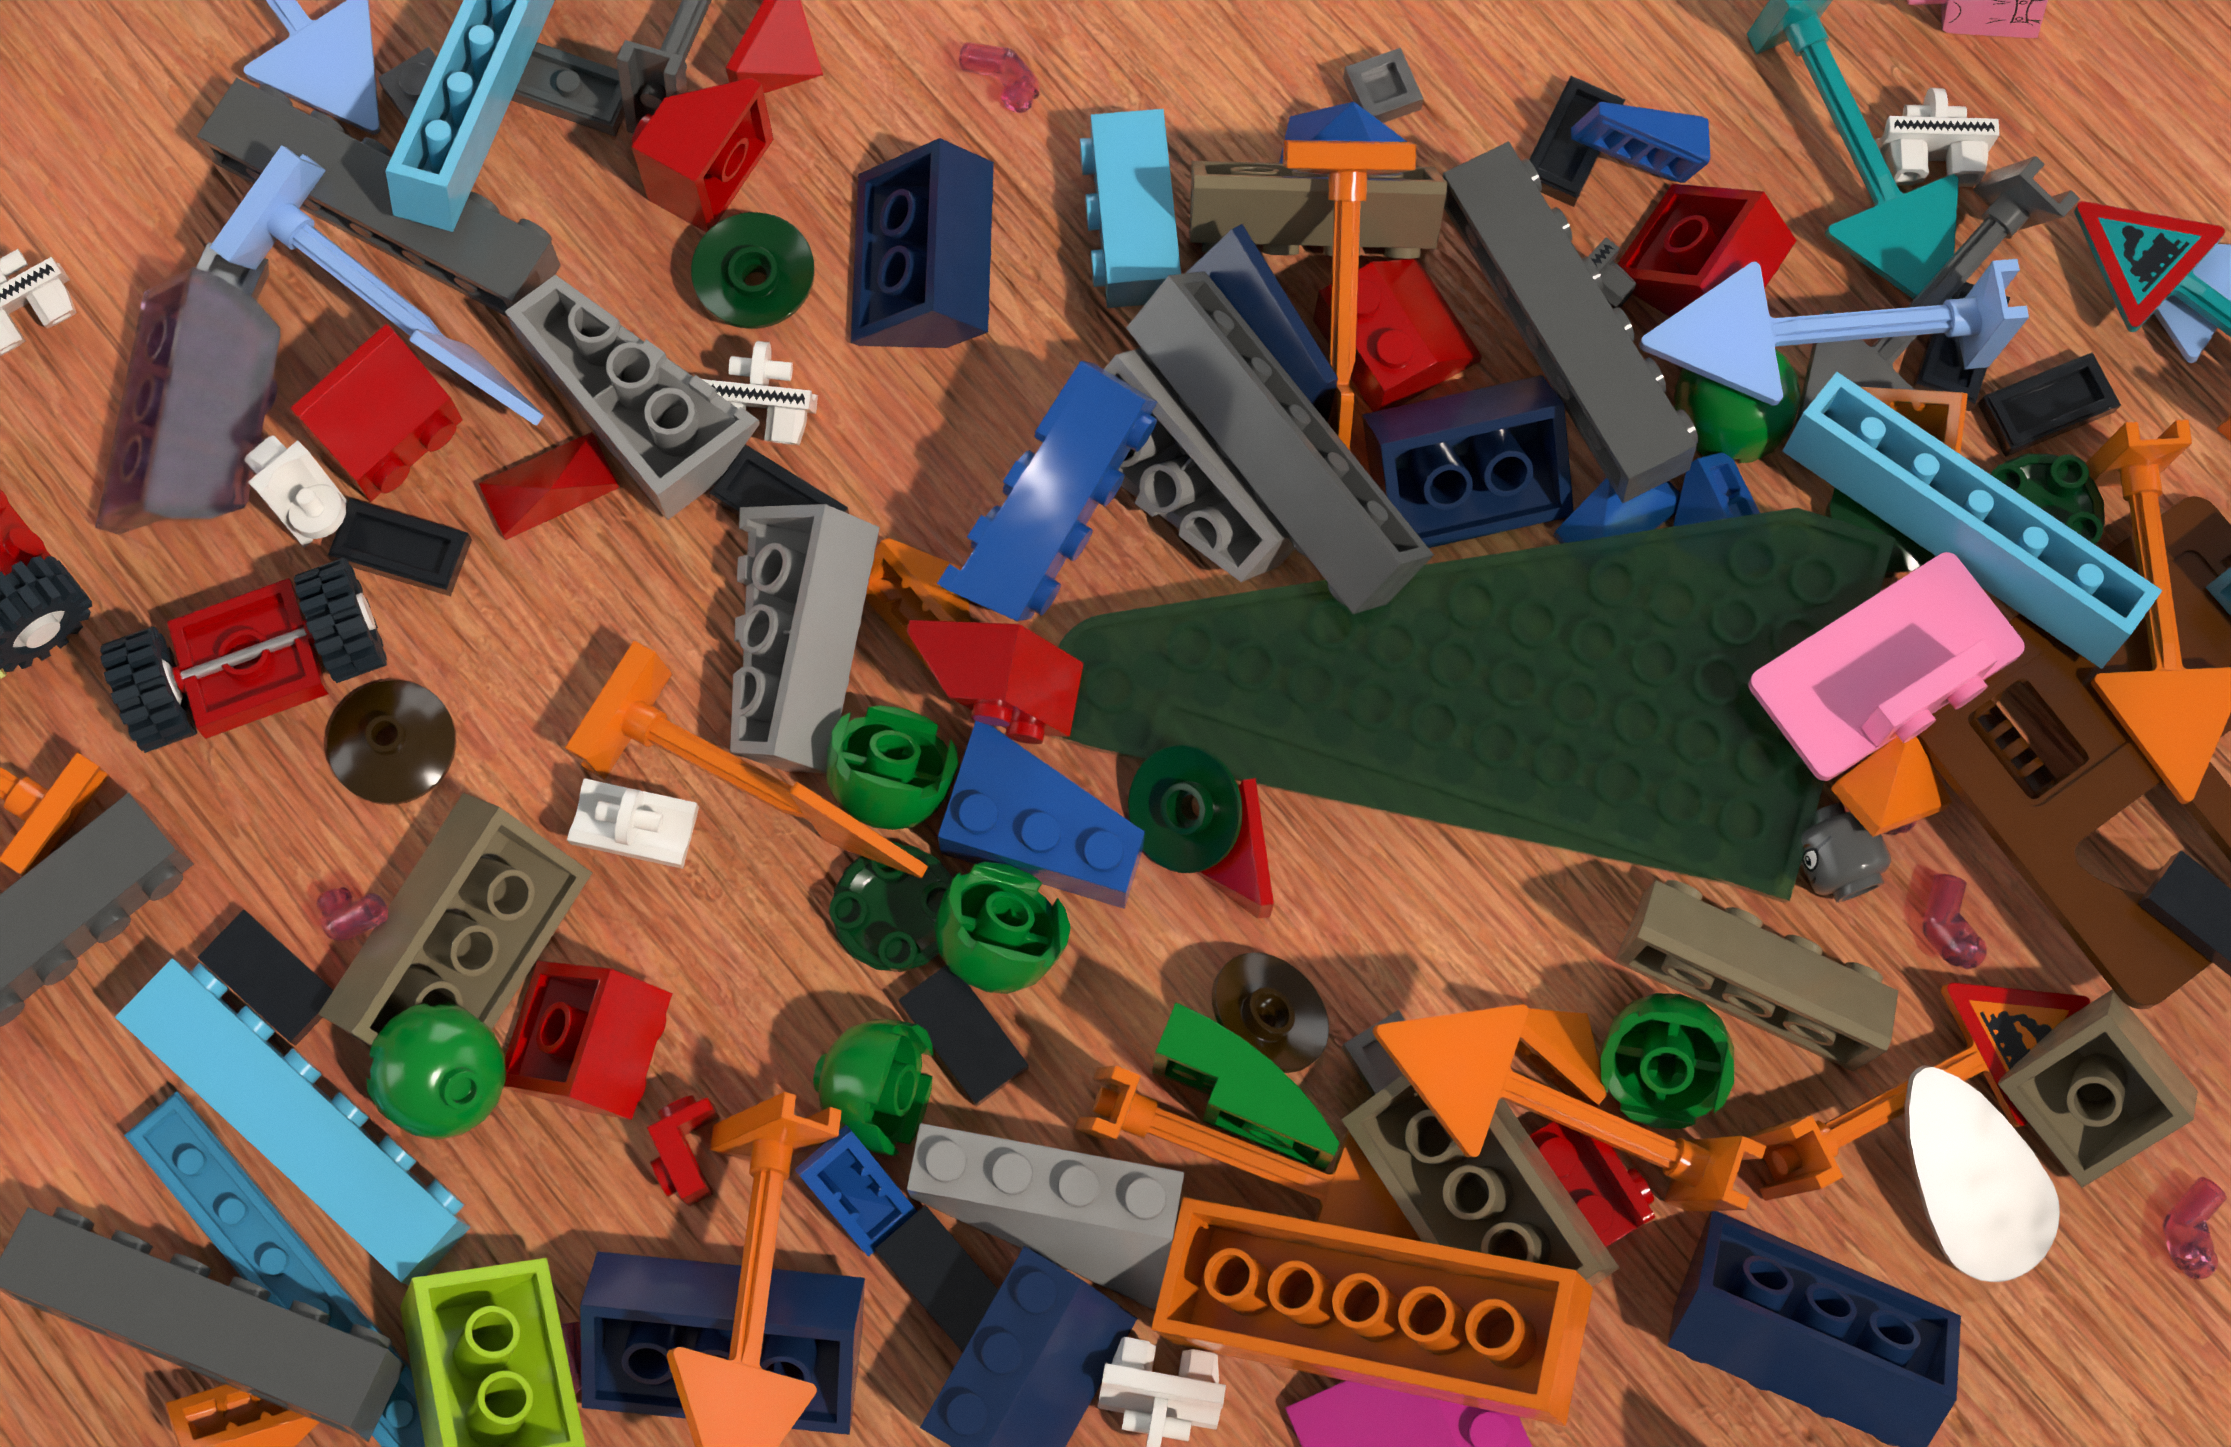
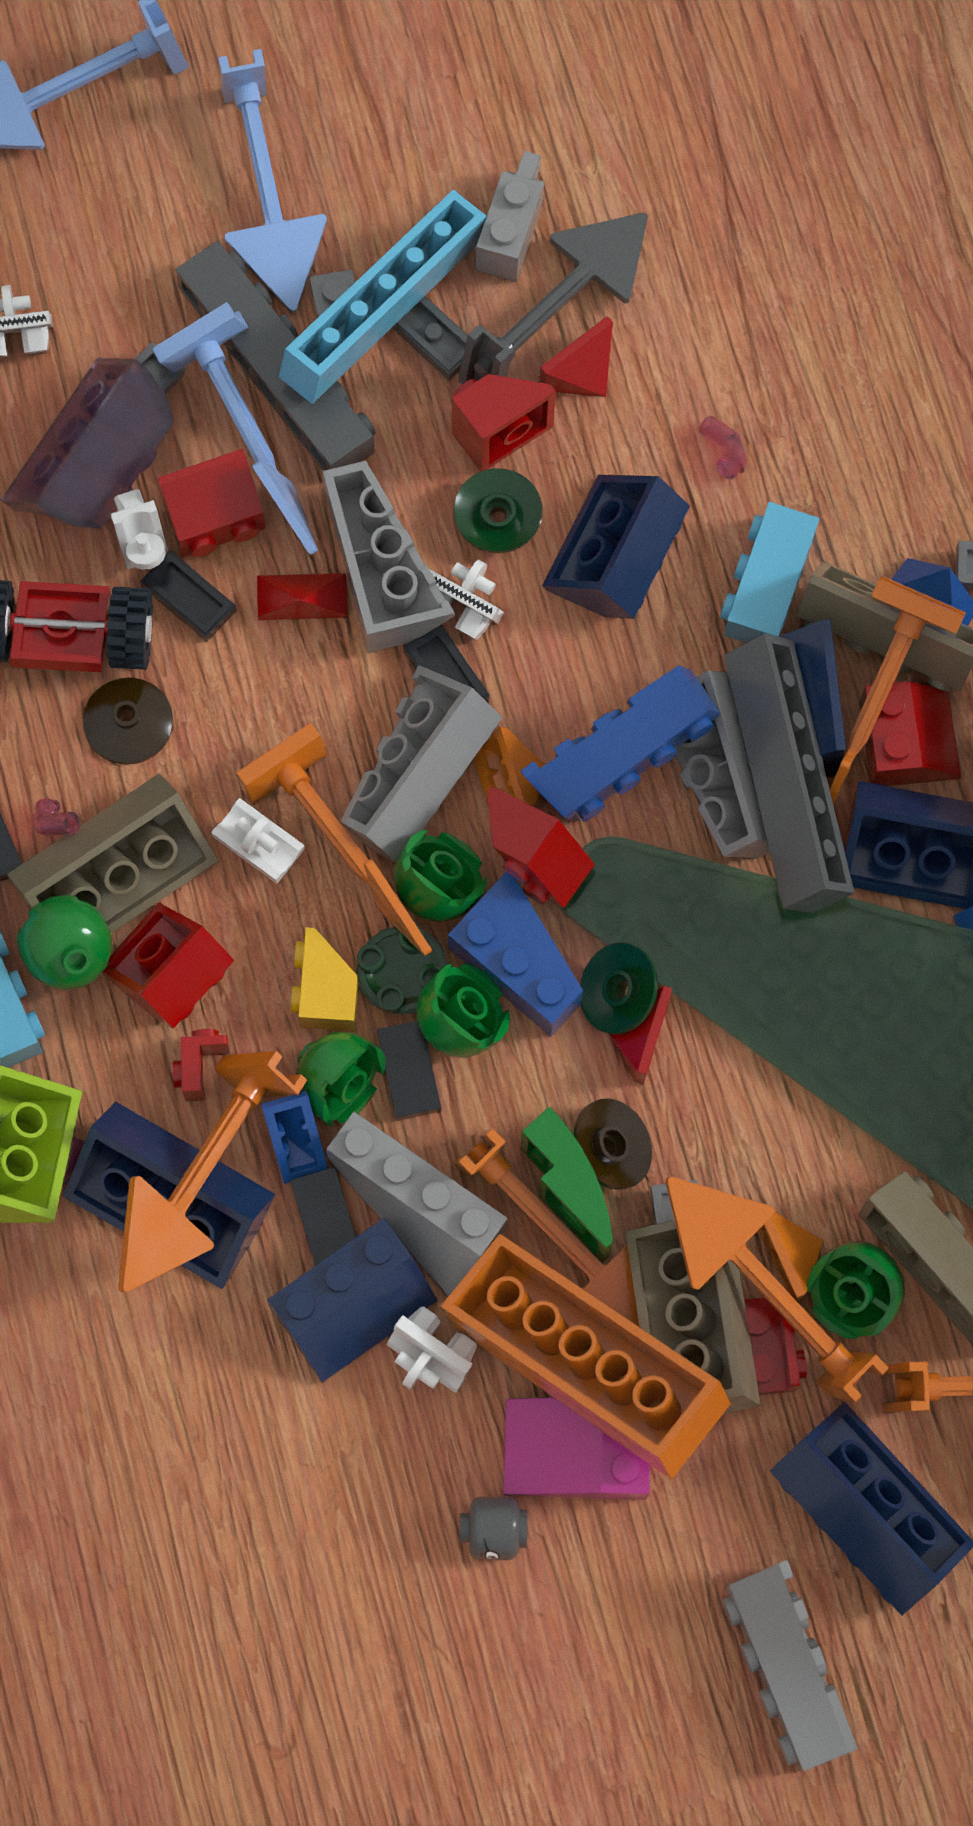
camera: 25 degrees right, 0 degrees up
(809, 973) = (327, 986): none -> yellow slope

